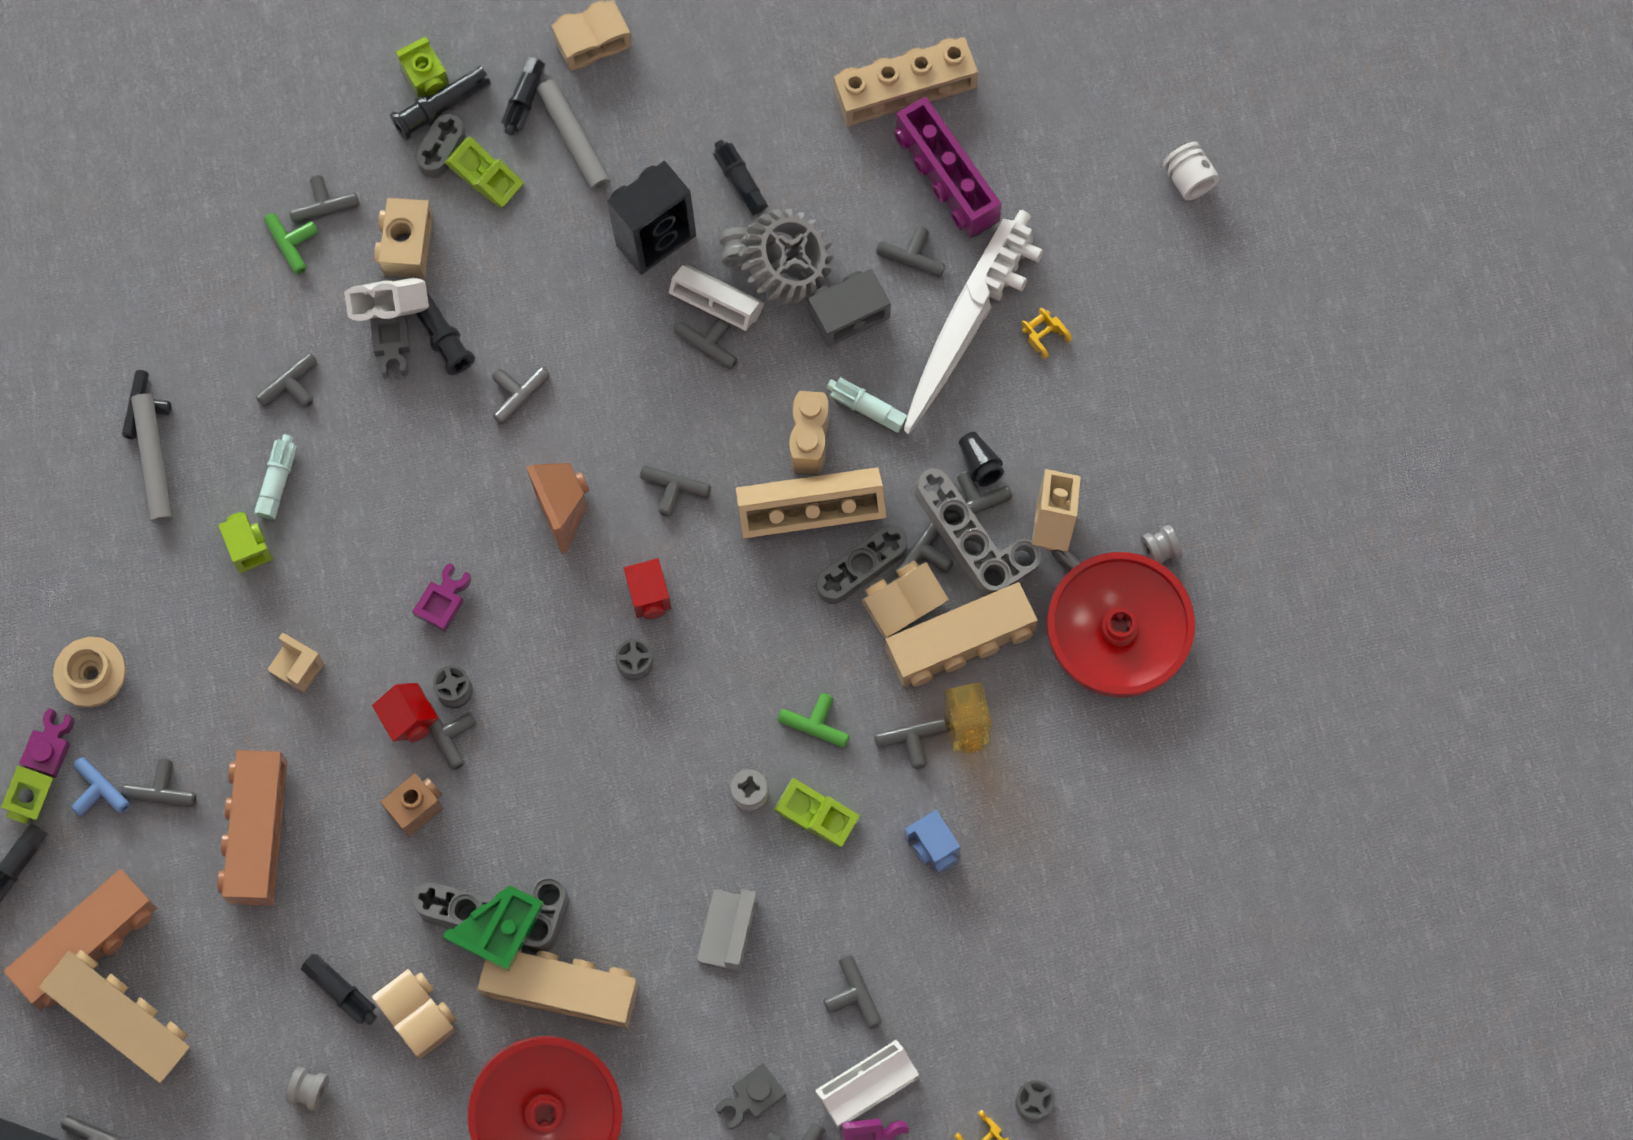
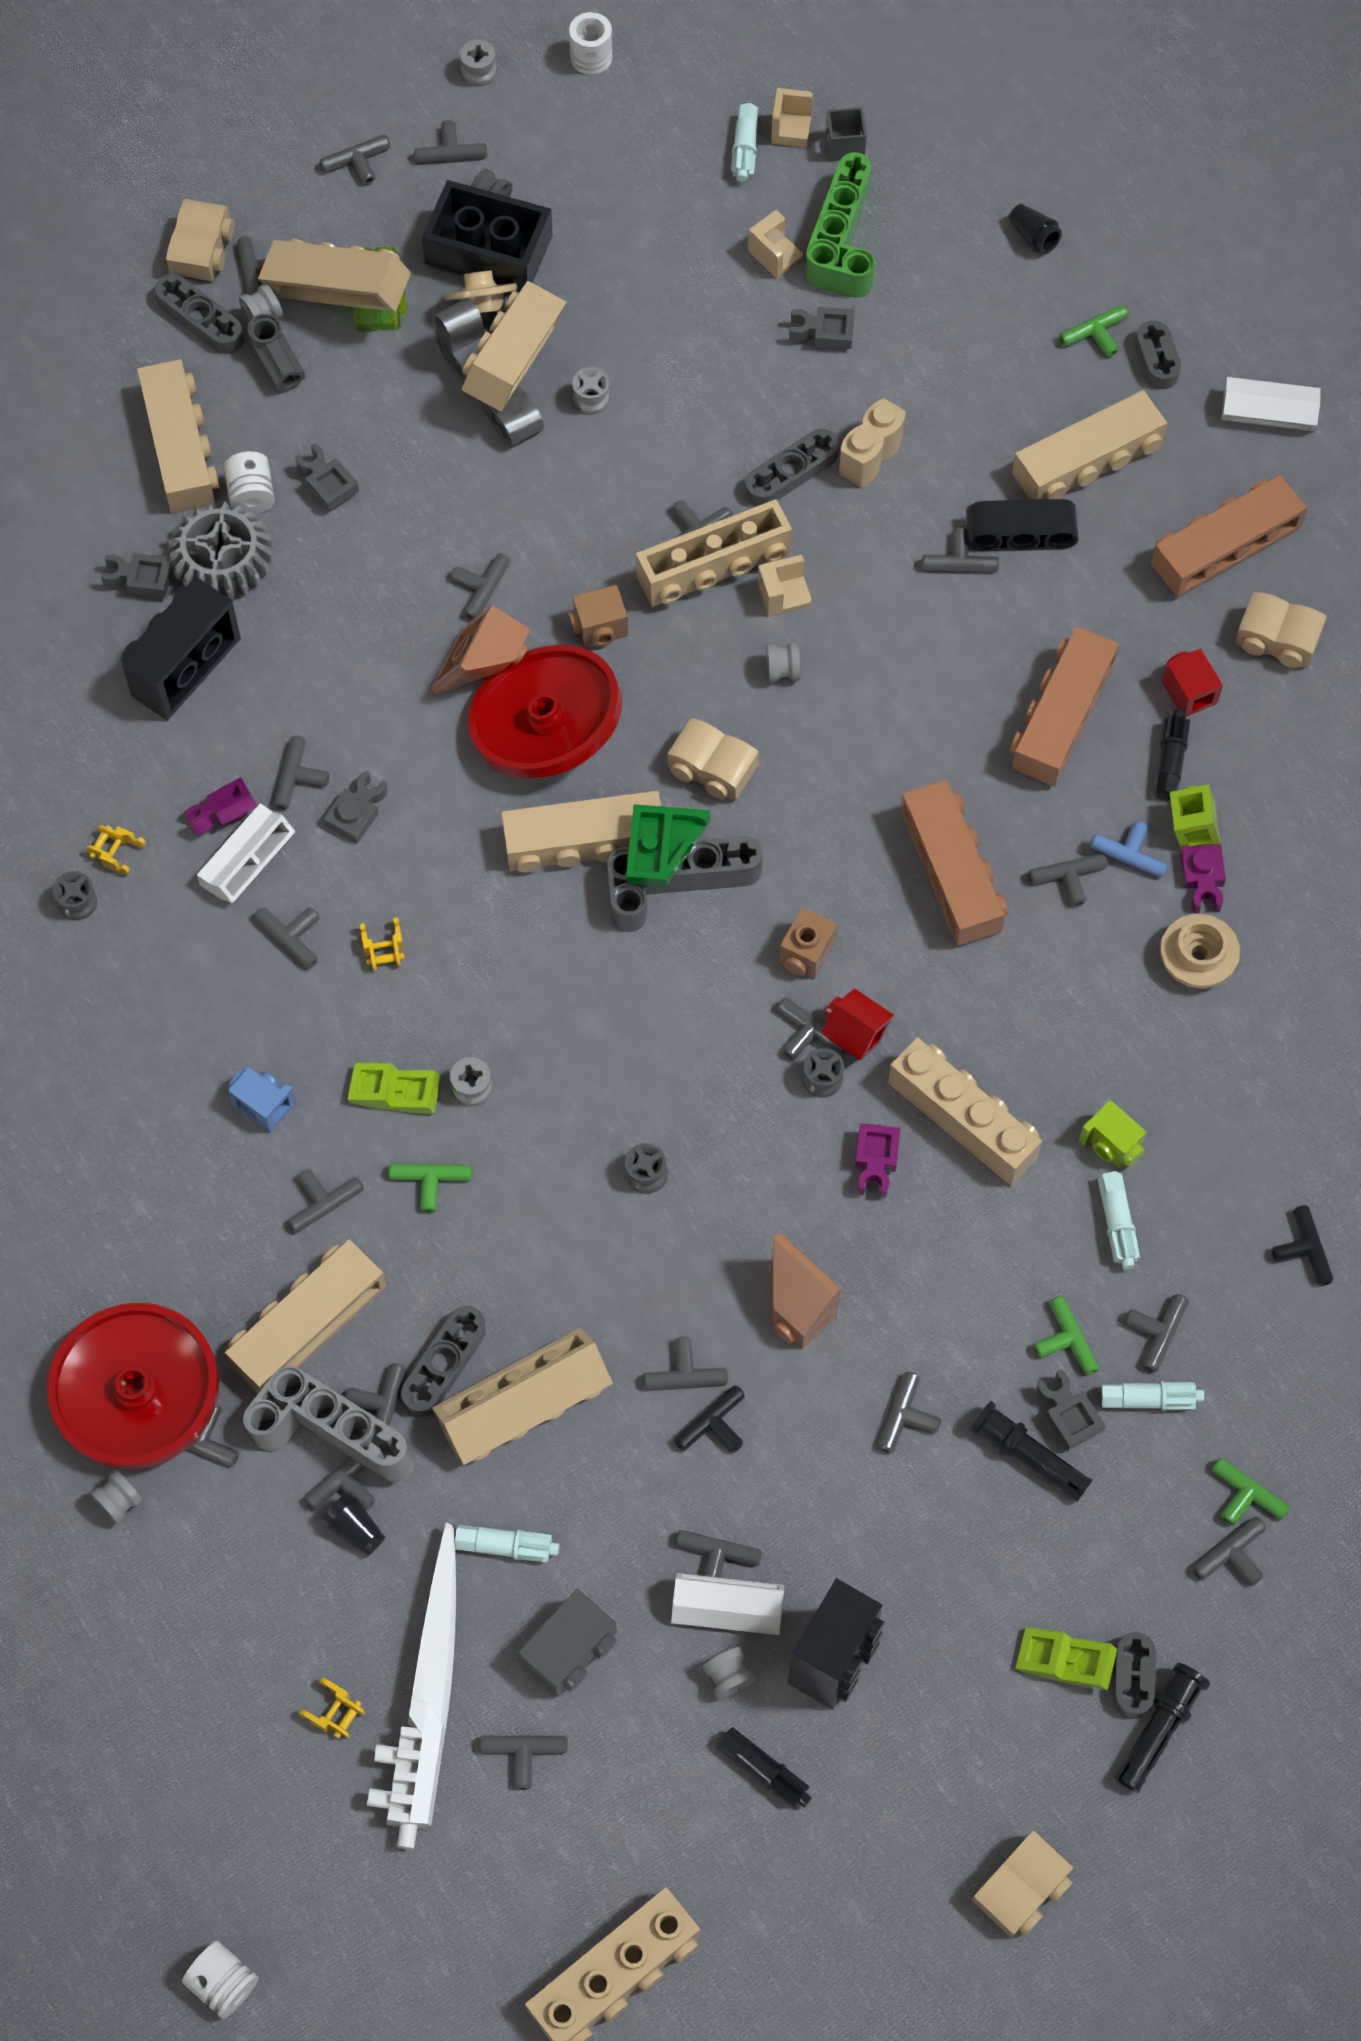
camera: 155 degrees right, 5 degrees down
(114, 1016) = (993, 644): tan brick -> none
(151, 458) = (1260, 1188): light grey piece -> none
(296, 663) = (996, 1039): tan panel -> none
(315, 331) = (1152, 1395): none -> light aqua piece
(344, 994) = (797, 758): black piece -> none
(354, 606) = (965, 1111): none -> tan brick
(362, 403) = (1069, 1337): none -> bright green piece
(386, 299) = (1093, 1442): white brick -> none
(410, 256) = (1114, 1563): tan brick -> none
(422, 67) = (1202, 1776): lime brick -> none
(520, 103) = (1067, 1773): black piece -> none
(573, 135) = (985, 1748): light grey piece -> none
(648, 589) = (663, 1243): red brick -> none
(668, 440) = (712, 1420): none -> black piece
(727, 929) = (440, 947): light grey panel -> none
(764, 948) = (396, 942): none -> yellow piece
(767, 252) = (663, 1639): light grey gear -> none
(809, 432) = (554, 1472): tan brick -> none
(904, 599) = (380, 1330): tan brick -> none
(947, 167) = (517, 1864): magenta brick -> none
(967, 717) = (265, 1221): clear yellow brick -> none
(1056, 510) = (243, 1479): tan brick -> none

